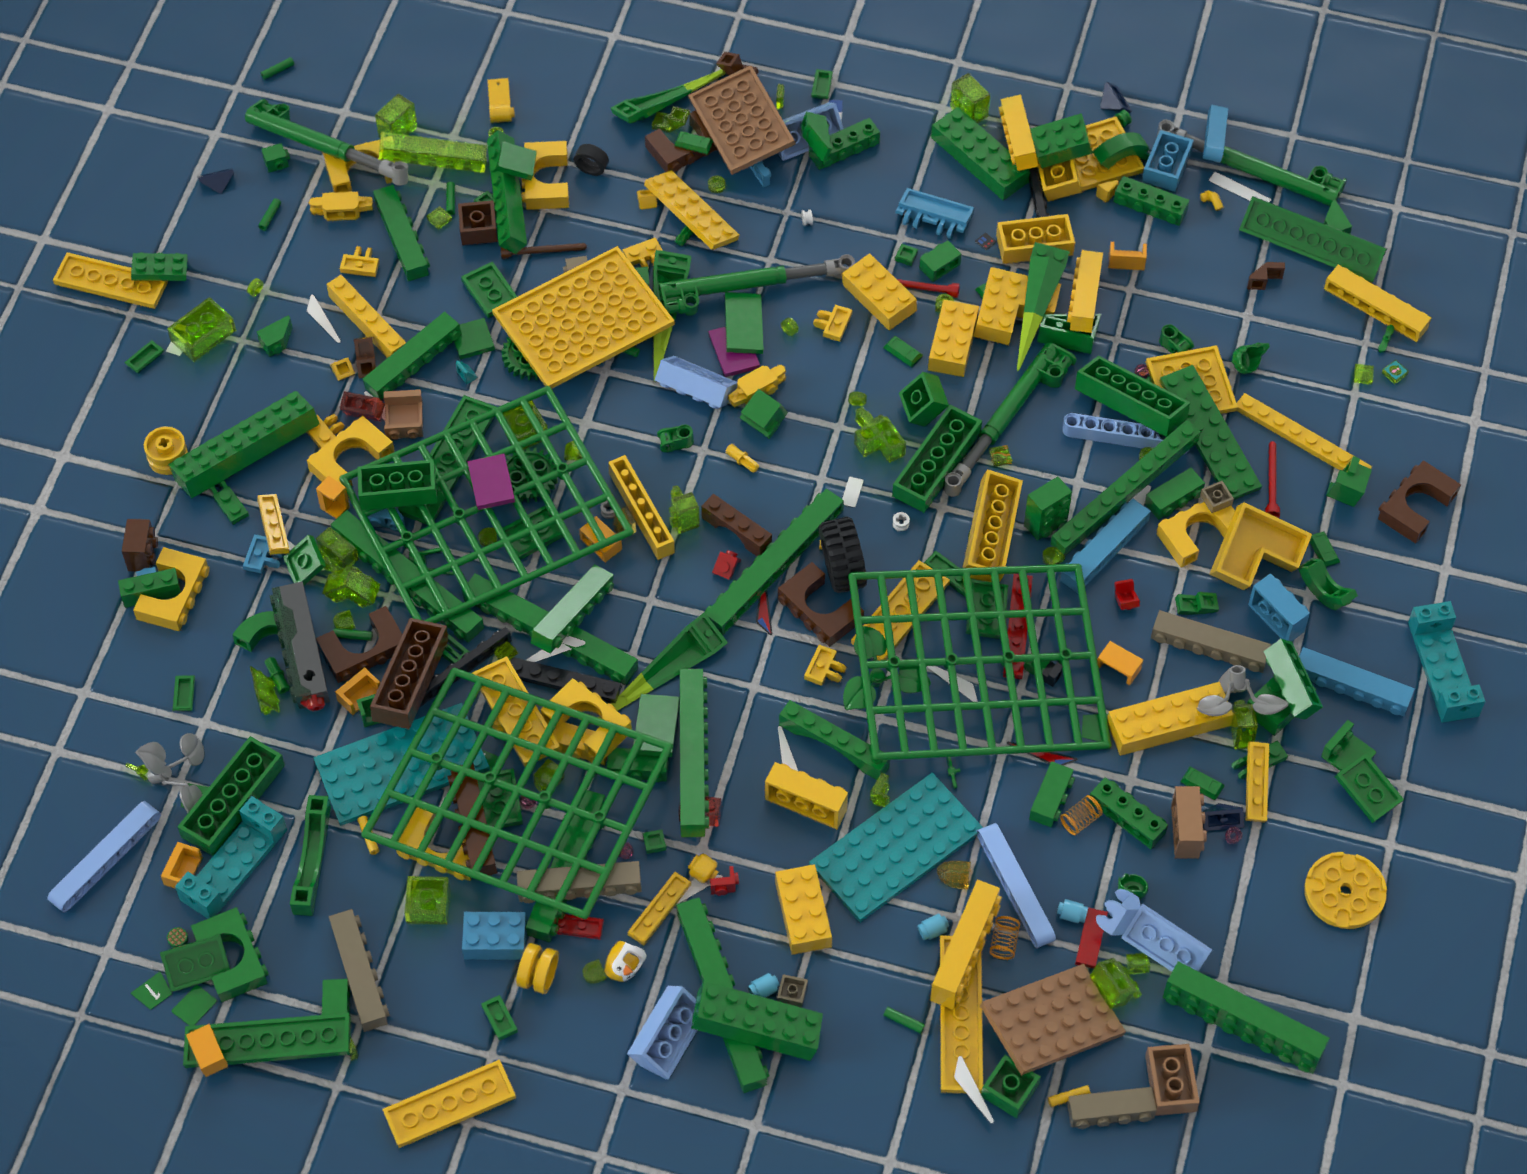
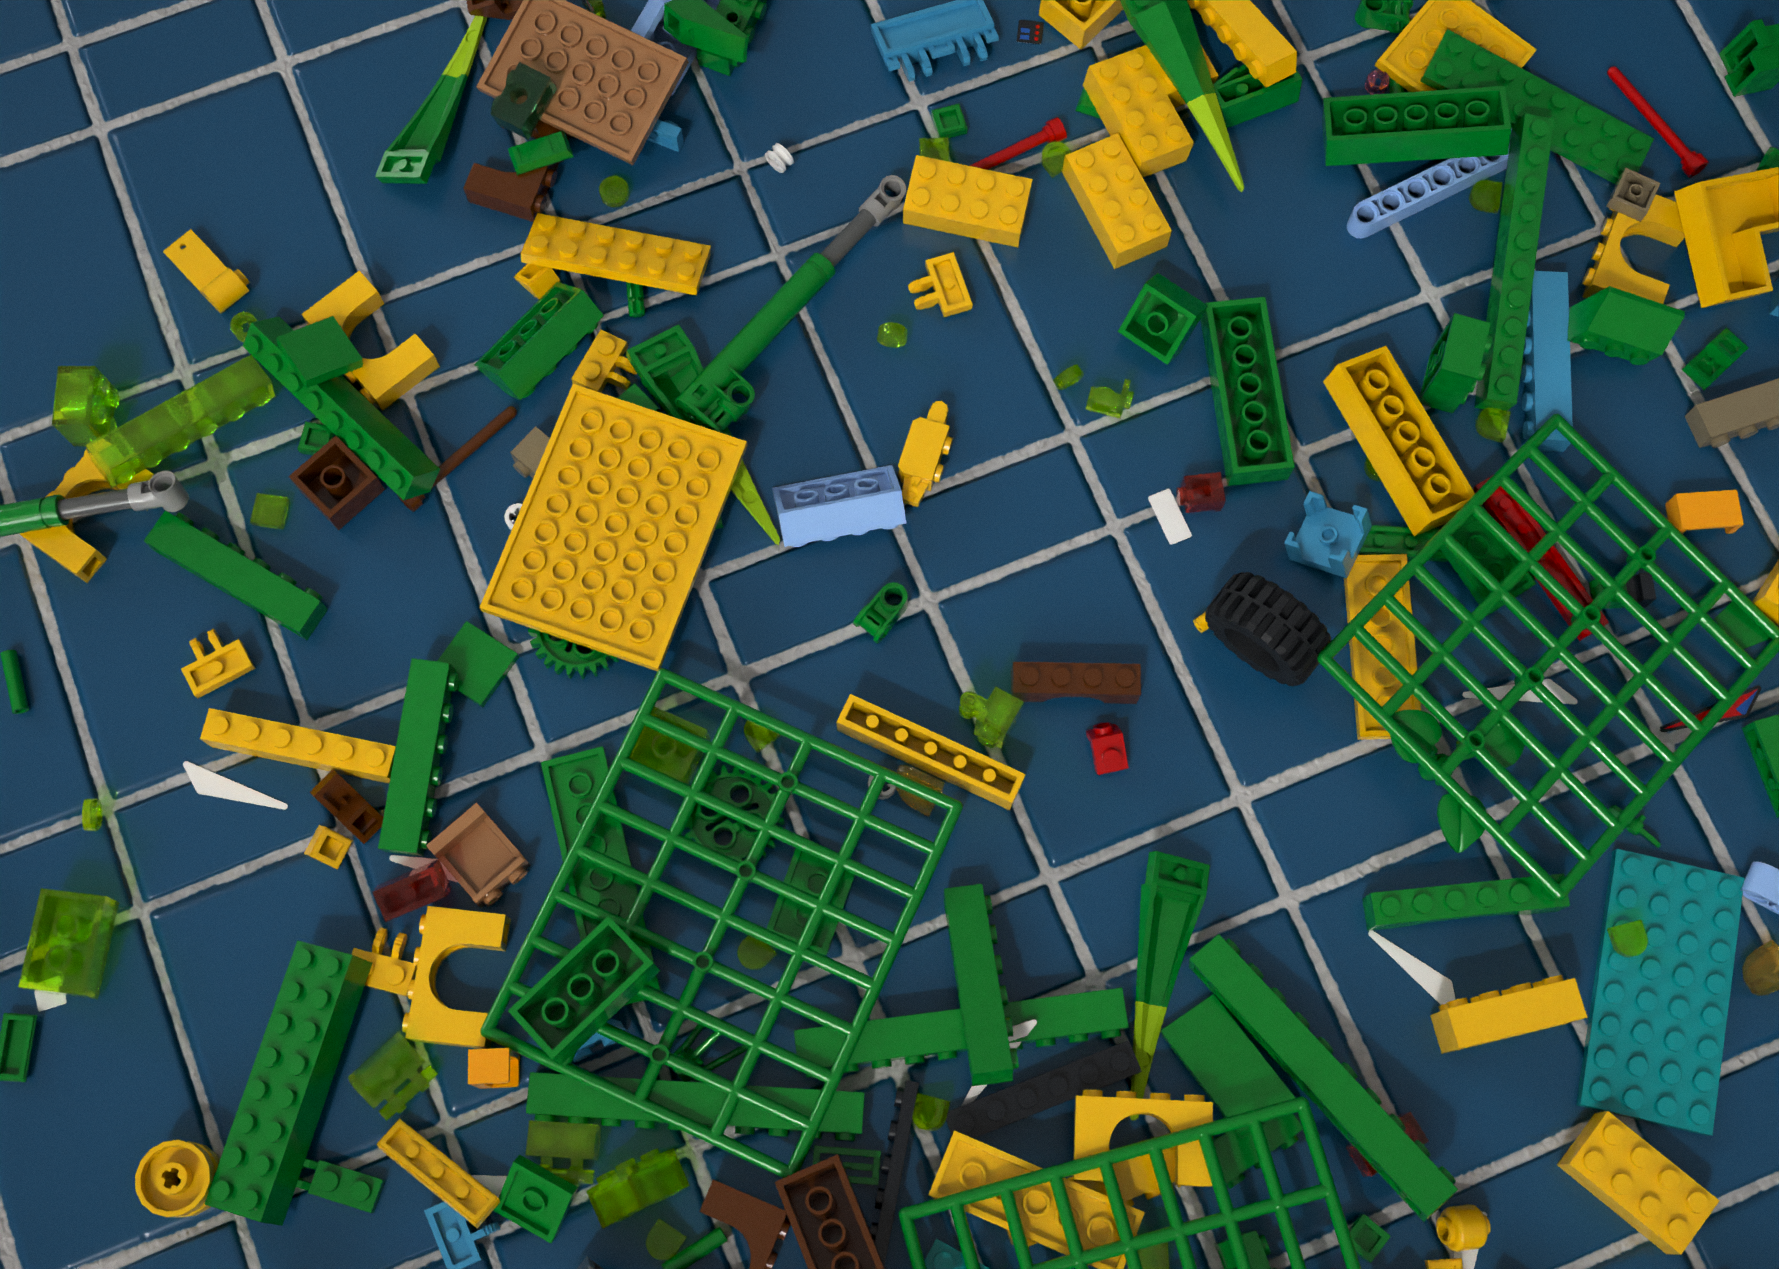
camera: 40 degrees left, 15 degrees up
(275, 336) = (189, 870): green slope -> none
(288, 468) = (389, 1069): none -> clear neon green brick
(340, 205) = (111, 594): yellow hinge -> none
(450, 198) = (261, 470): green piece -> none
(465, 372) = (511, 722): teal slope -> none
(488, 288) = (438, 571): green plate -> none
(491, 481) = (709, 880): magenta tile -> none
(589, 538) = (894, 849): light orange panel -> none
(595, 153) = (417, 274): black tyre -> none
(623, 224) = (540, 340): none -> green slope
(671, 121) = (475, 142): clear neon green slope -> none
(702, 112) = (525, 116): none -> clear green brick
(724, 885) = (1508, 1232): red bracket -> none
(731, 362) = (845, 421): magenta tile -> none
(742, 458) = (994, 574): yellow axle -> none
(743, 323) = (828, 373): green tile -> none
(763, 413) = (970, 491): green plate -> none
(763, 613) = (1211, 784): sticker -> none
(774, 561) = (1166, 699): green brick -> none
(820, 666) = (1351, 802): yellow hinge -> none
(828, 626) = (1235, 728): reddish brown arch -> none
(874, 488) = (1207, 485): none -> clear red brick
(879, 791) = (1577, 926): clear neon green bracket -> none
(880, 436) = (1152, 410): clear neon green brick -> none
(887, 261) = (934, 148): none -> clear neon green tile
(898, 808) = (1628, 938): none -> clear neon green tile
(903, 351) = (1062, 265): green tile -> none
(903, 516) = (1270, 524): white bush -> none
(918, 547) = (1328, 536): none -> dark azure panel
(940, 261) = (1003, 100): green brick -> none
(1000, 456) = (1309, 327): clear neon green tile -> none
(1048, 368) = (1260, 151): green piece -> none
(1126, 595) = (1631, 413): red bracket -> none
(1153, 549) = (1623, 325): none -> green slope
(1174, 493) = (1566, 225): green brick -> none
(1295, 432) = (1632, 36): yellow plate -> none

